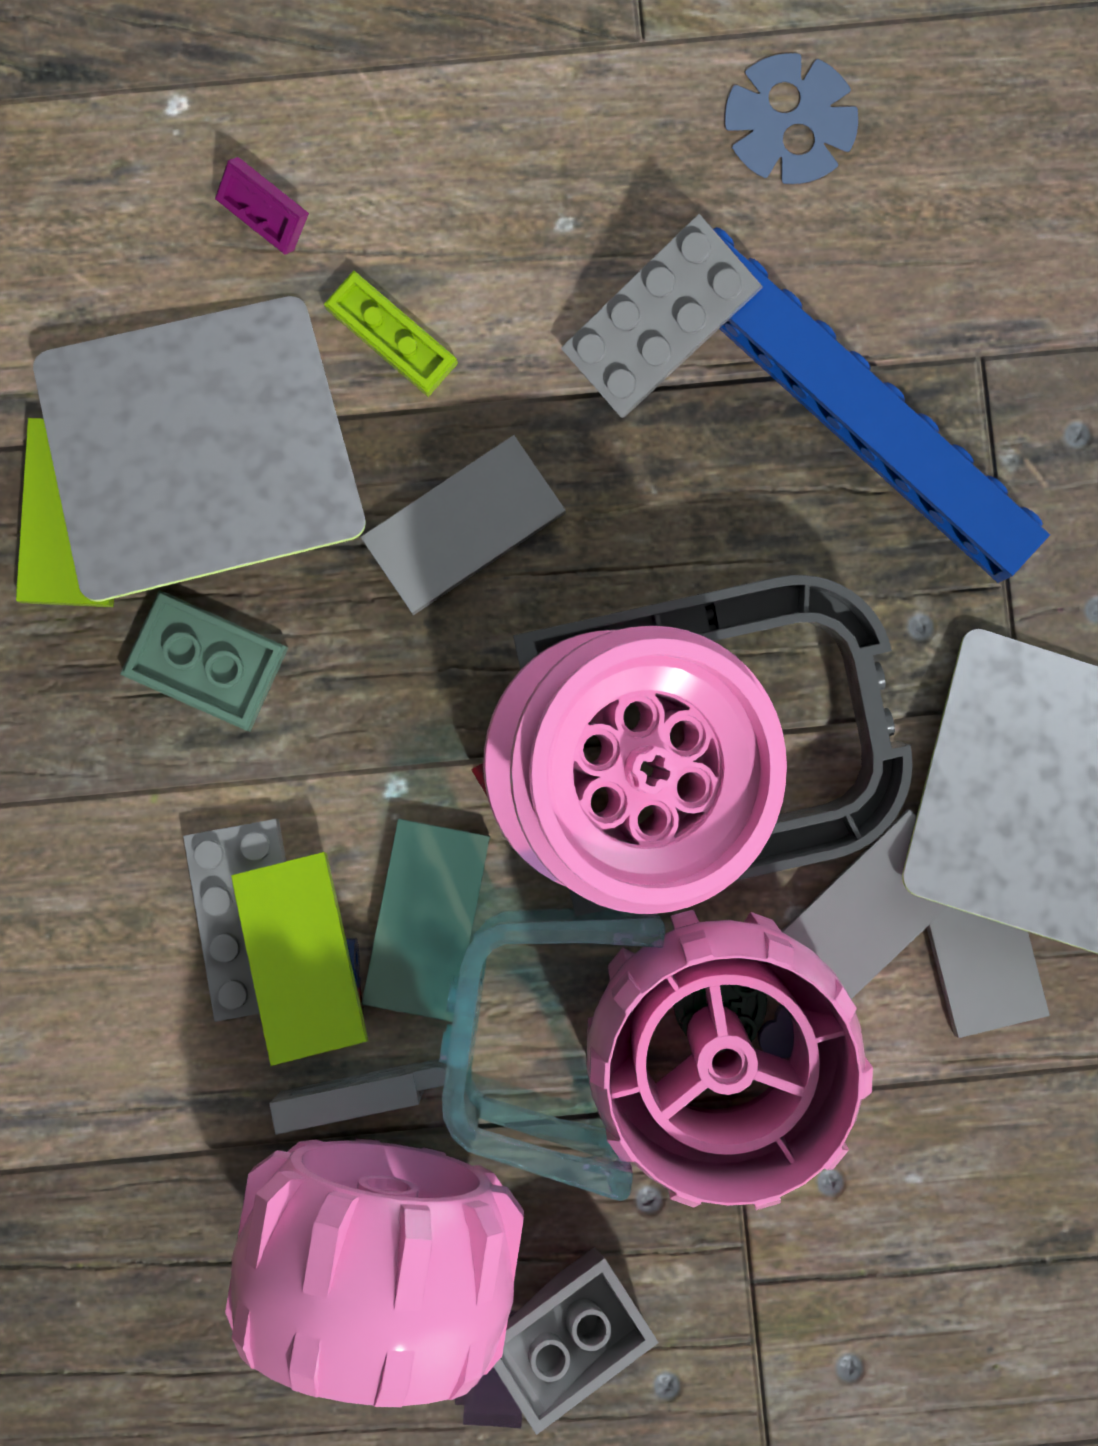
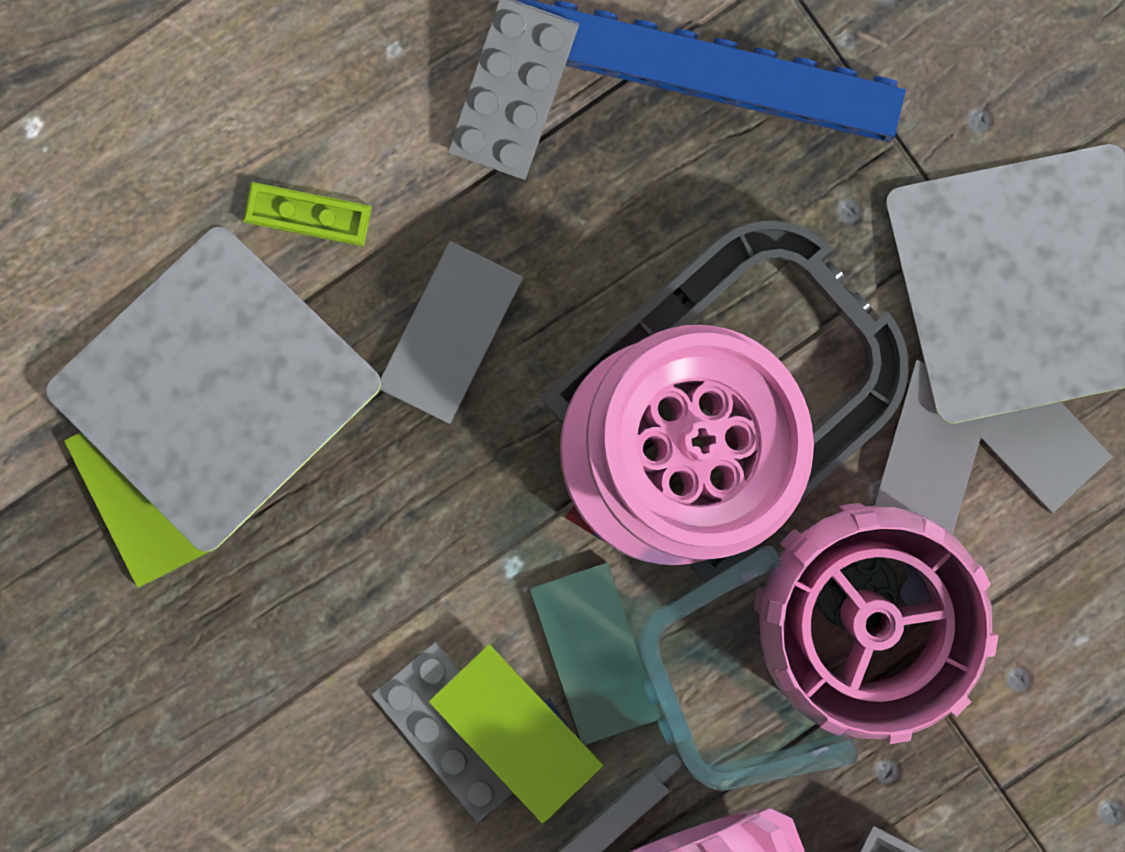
camera: 20 degrees left, 0 degrees up
(204, 661) = (309, 551): sand green tile -> none
(261, 205) = (151, 172): magenta plate -> none

